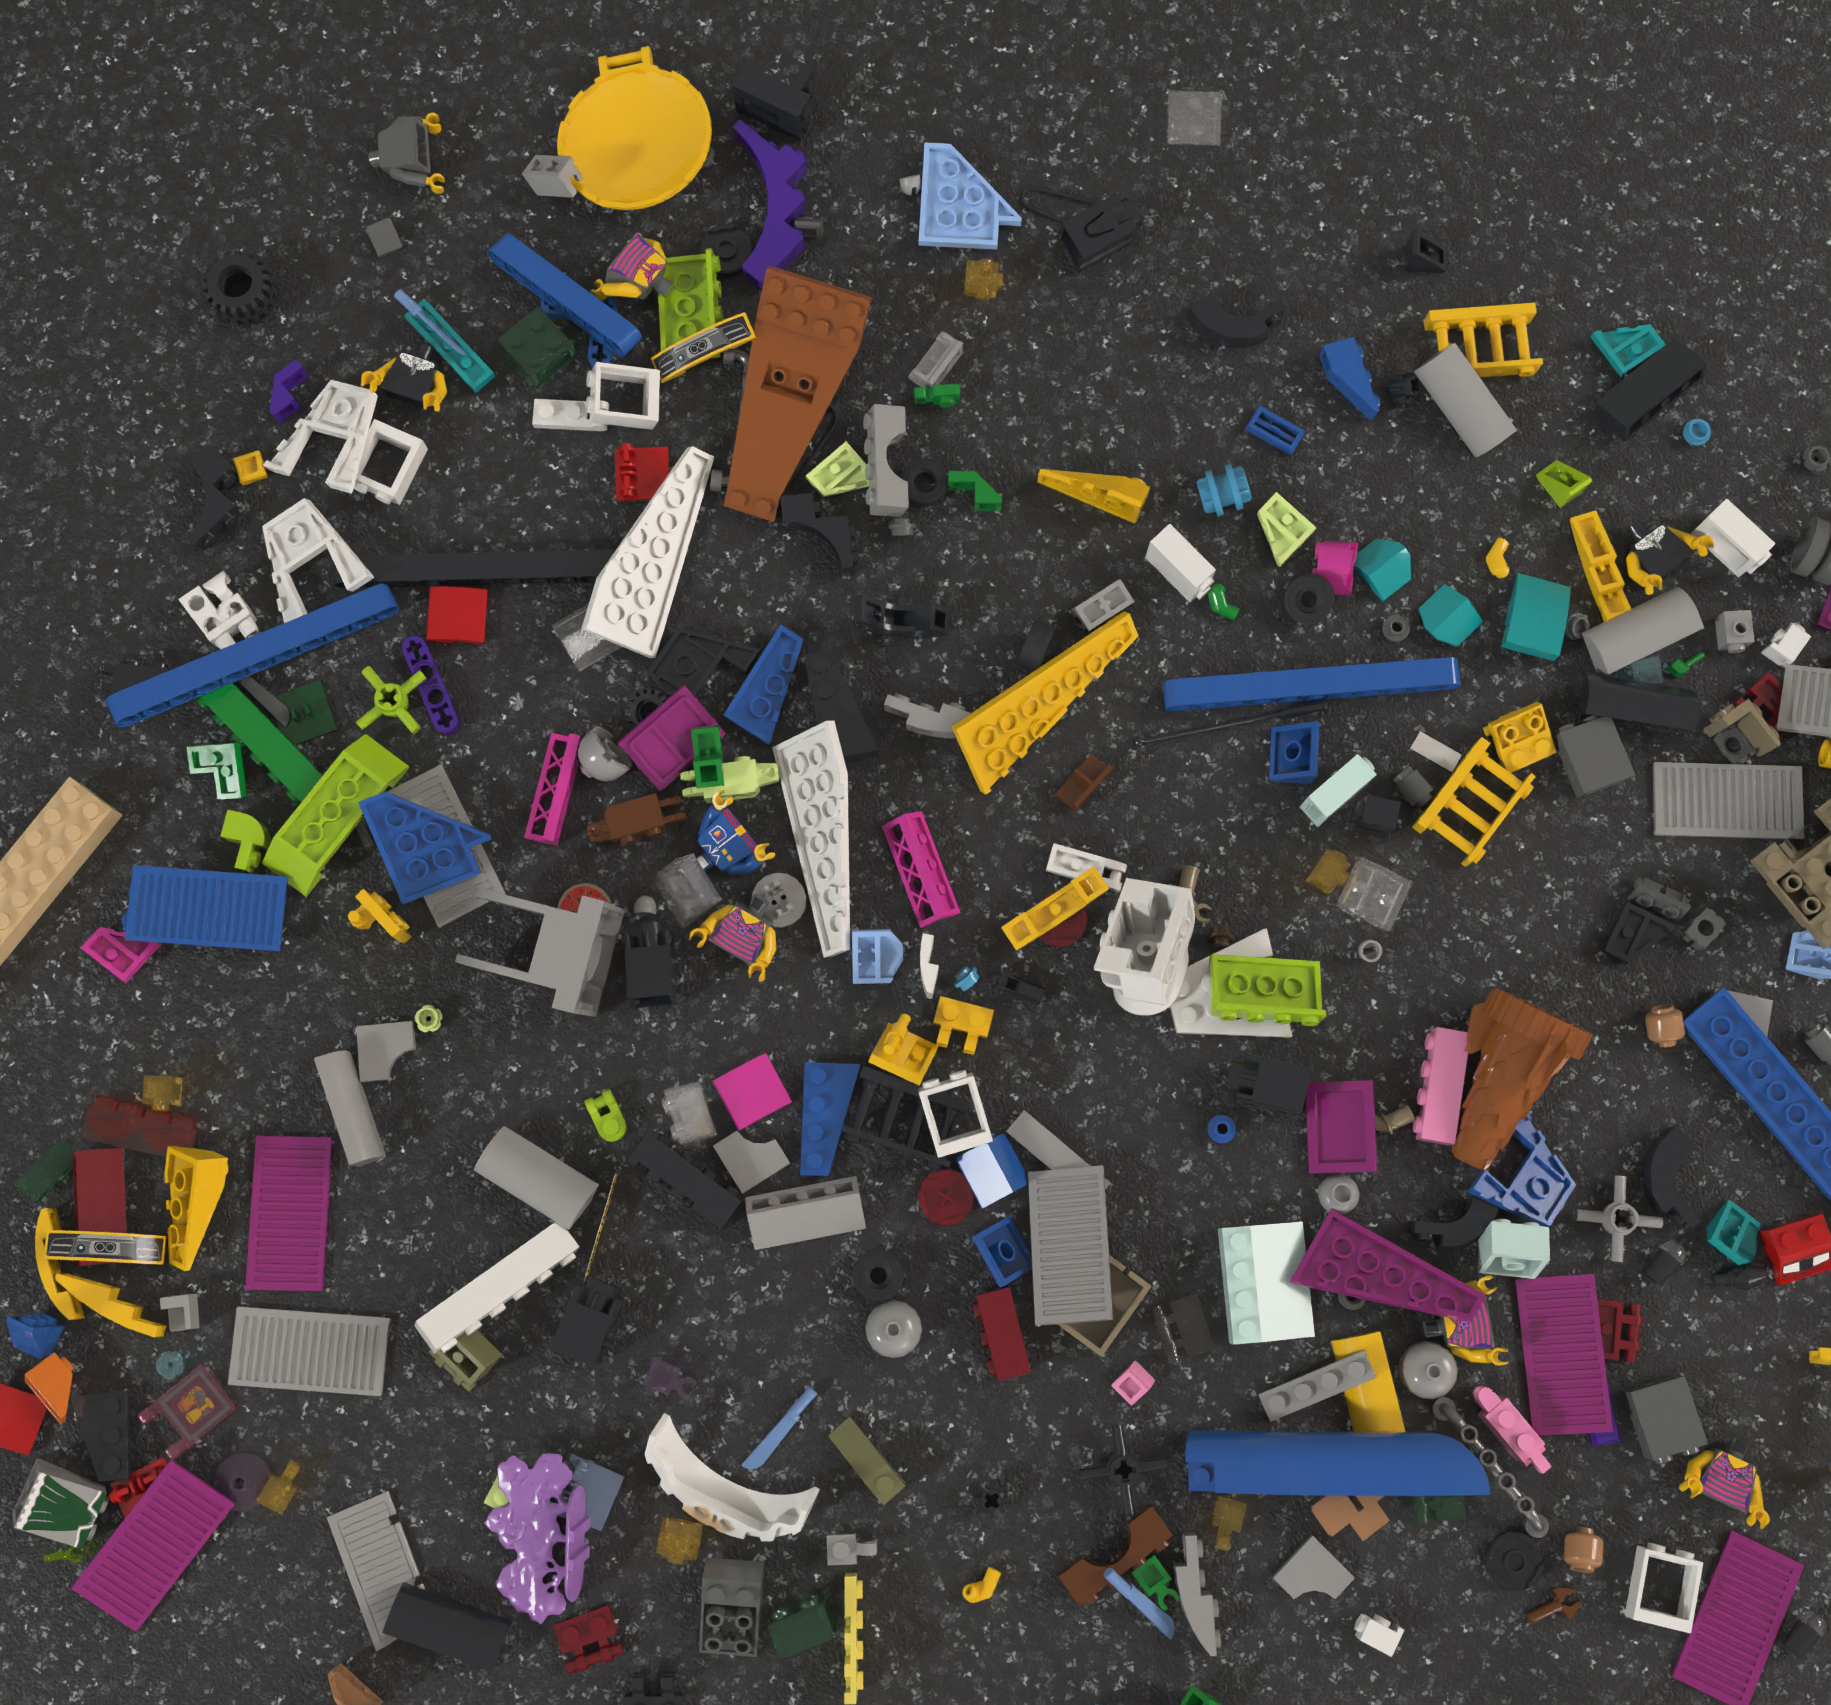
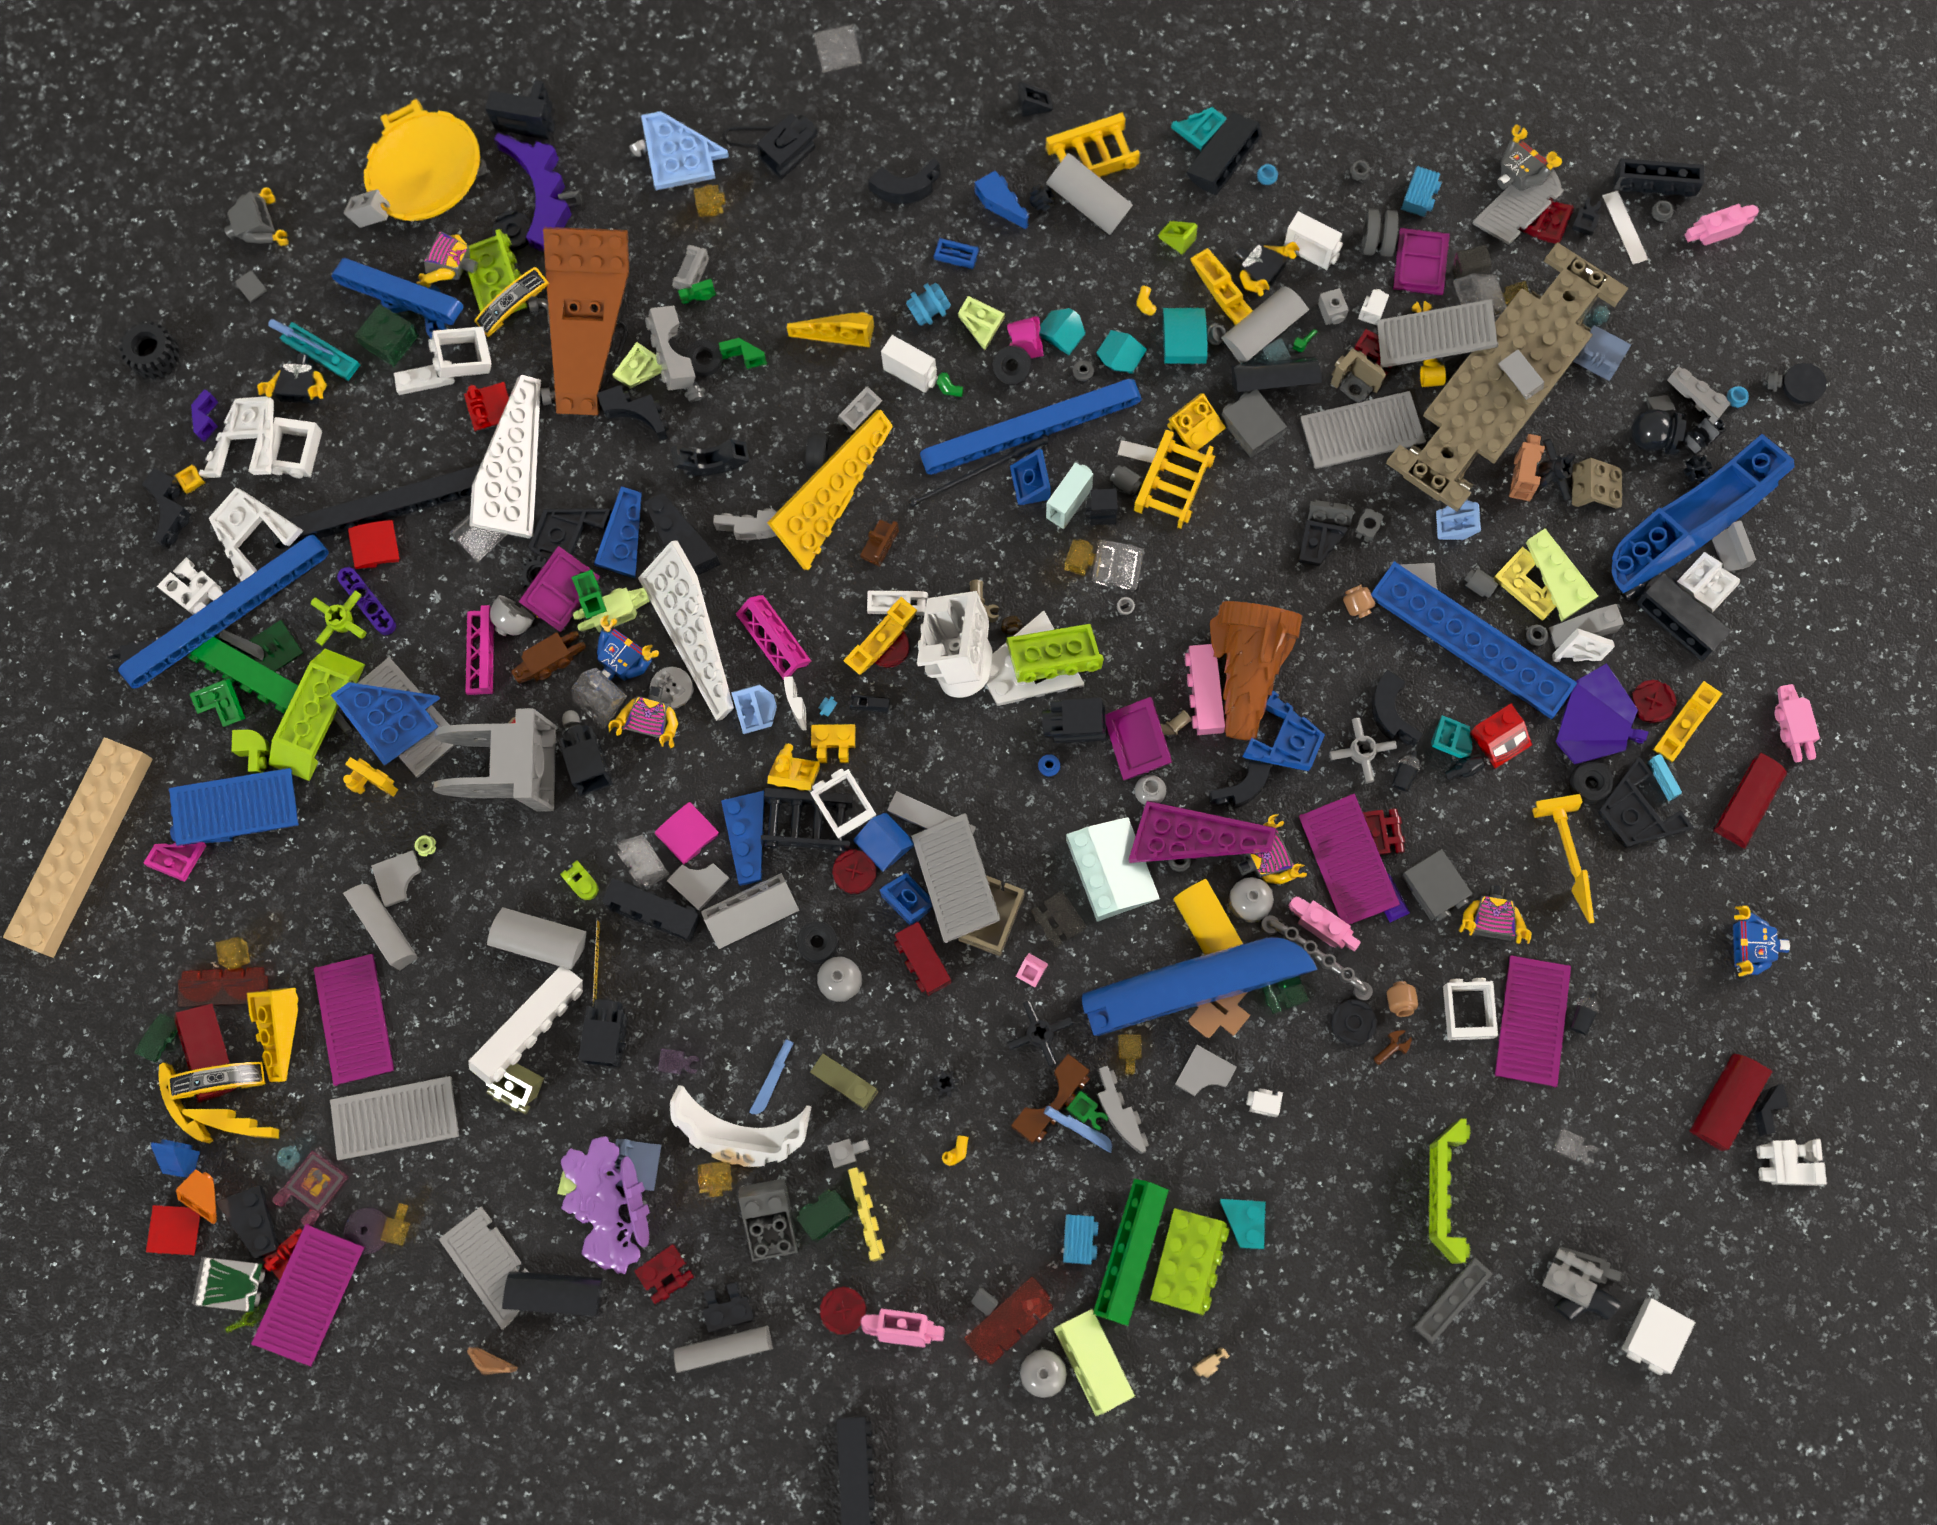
camera: 10 degrees left, 5 degrees down
(181, 1311) = (287, 1113): light grey panel -> none
(1317, 1385) = (1170, 931): light grey plate -> none
(1513, 1249) = (1289, 791): light aqua brick -> none

